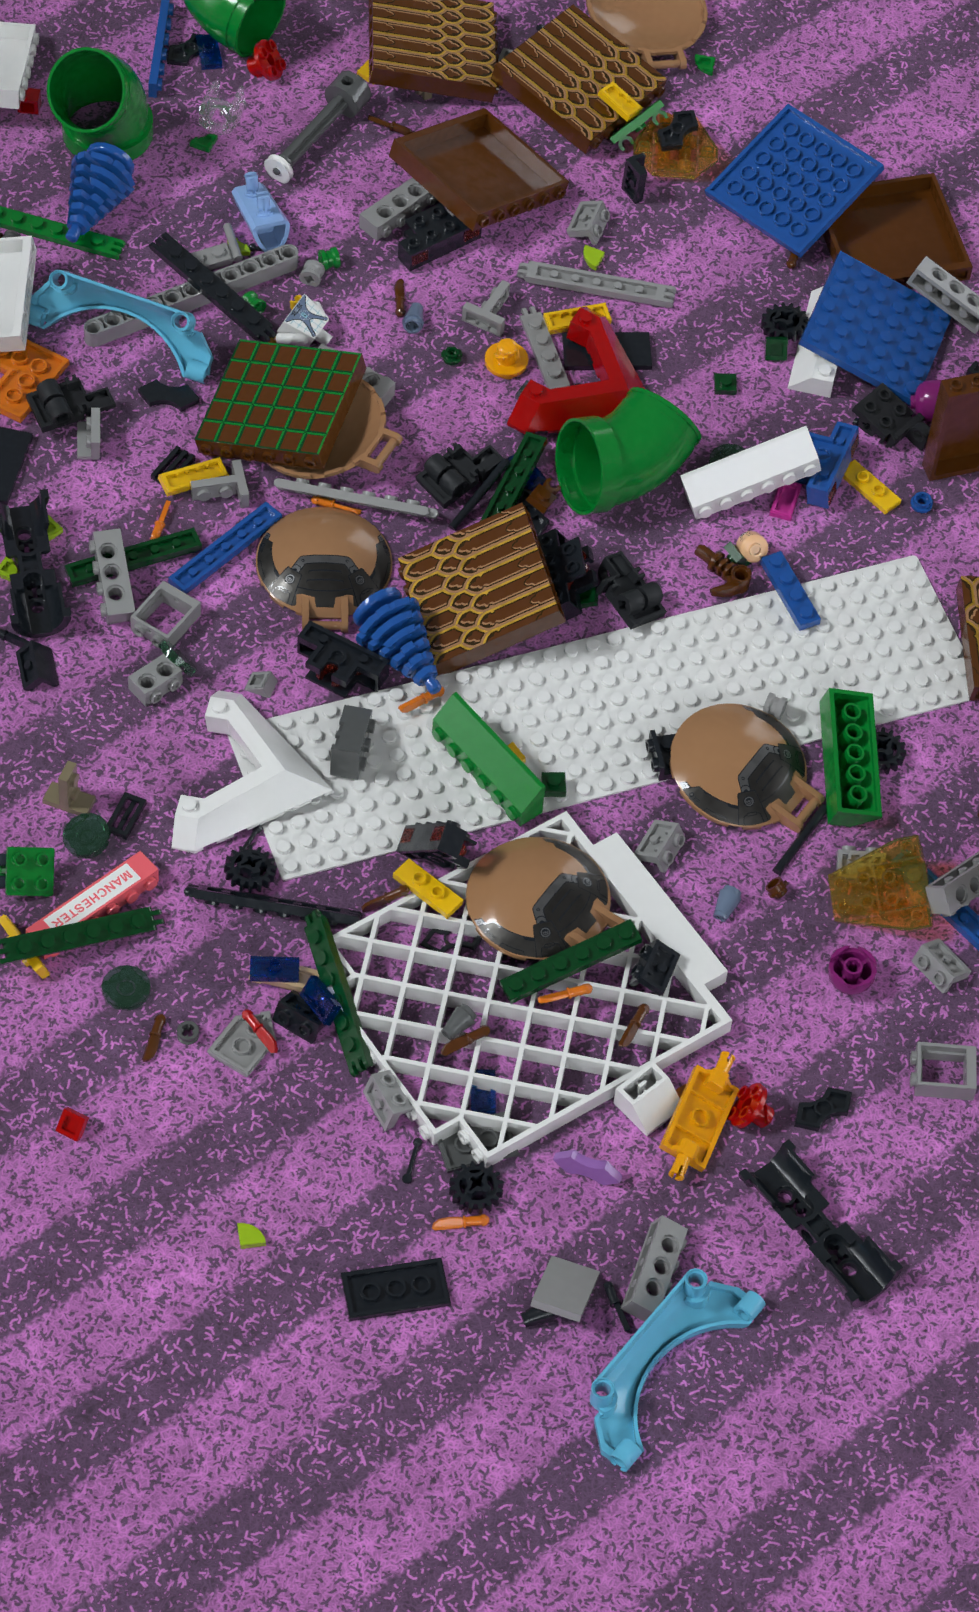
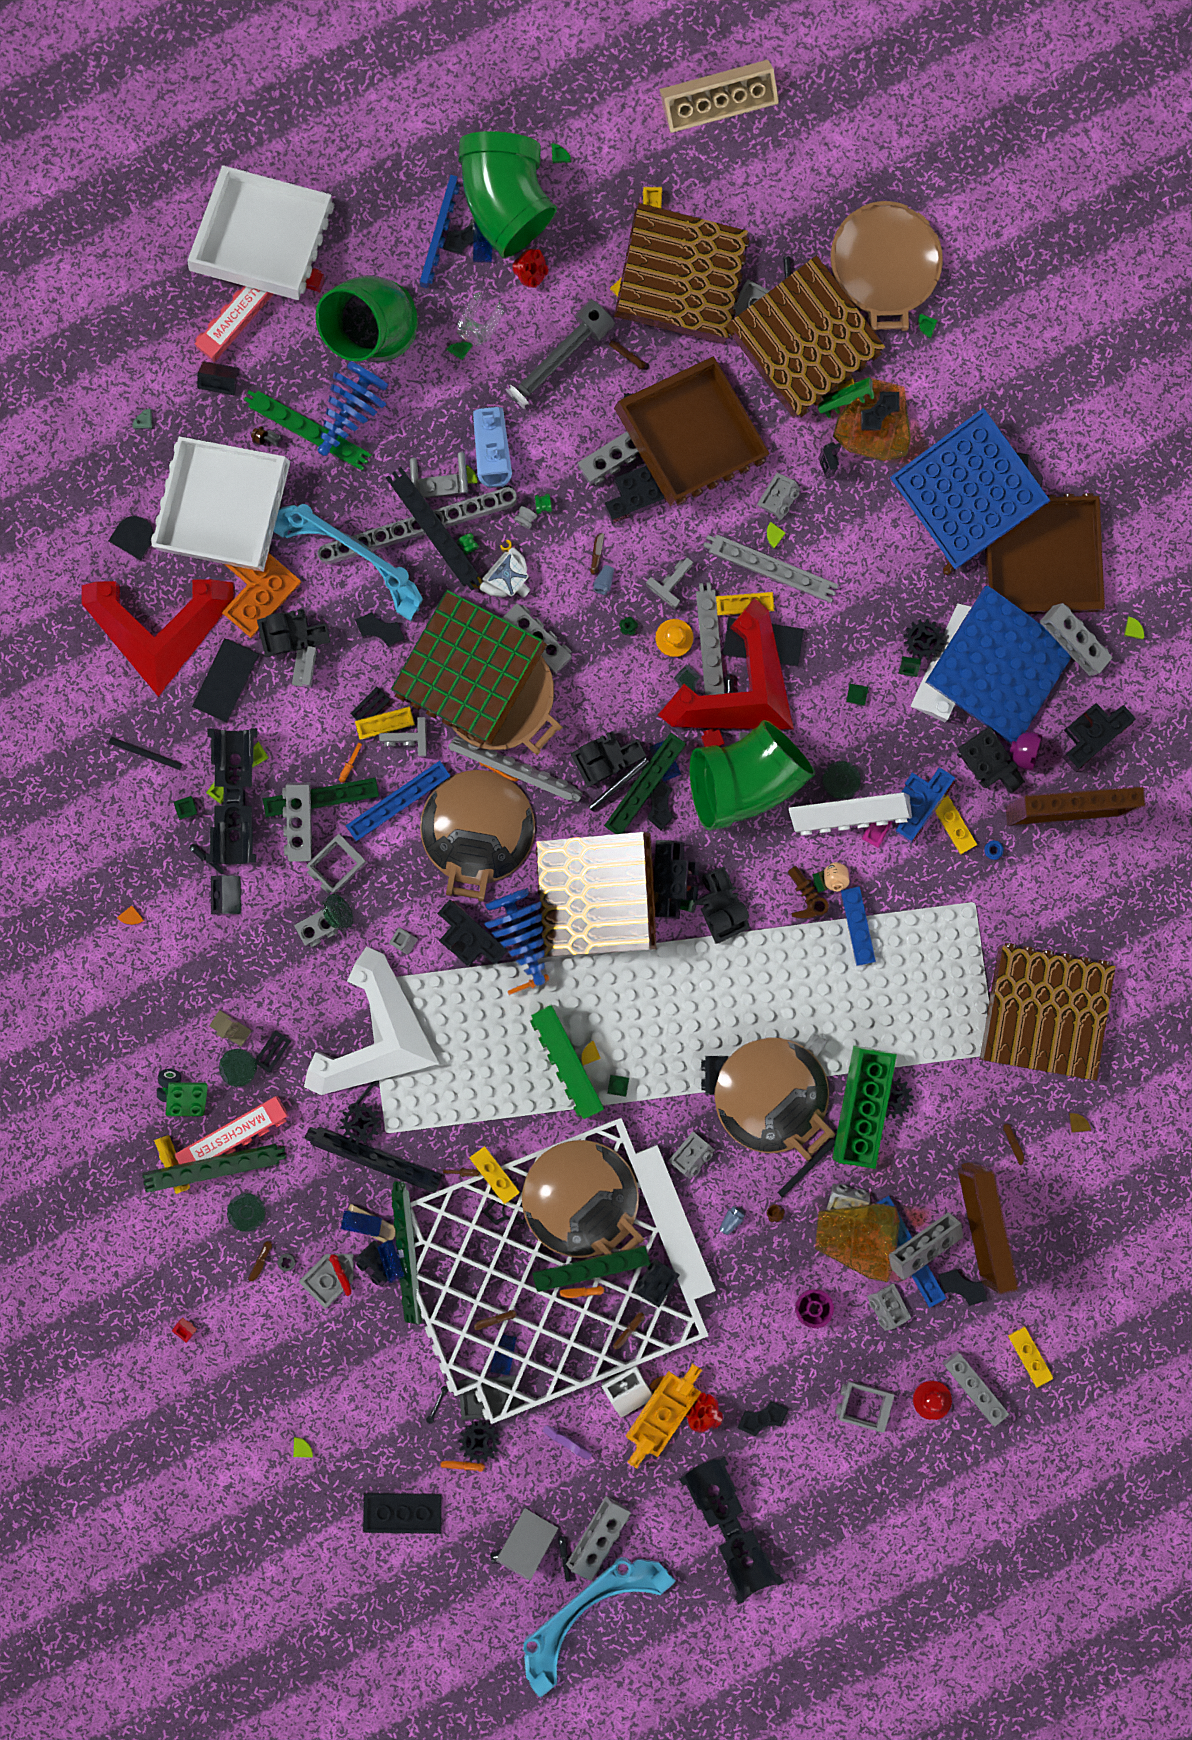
camera: 20 degrees right, 30 degrees up
(352, 742) = (463, 1020): dark grey wedge -> none
(386, 1098) = (427, 1354): light grey bracket -> none
(437, 843) = (507, 1142): black piece -> none
(460, 1020) = (493, 1304): dark grey cone -> none
(543, 496) = (672, 794): reddish brown plate -> none
(620, 101) = (833, 376): yellow plate -> none

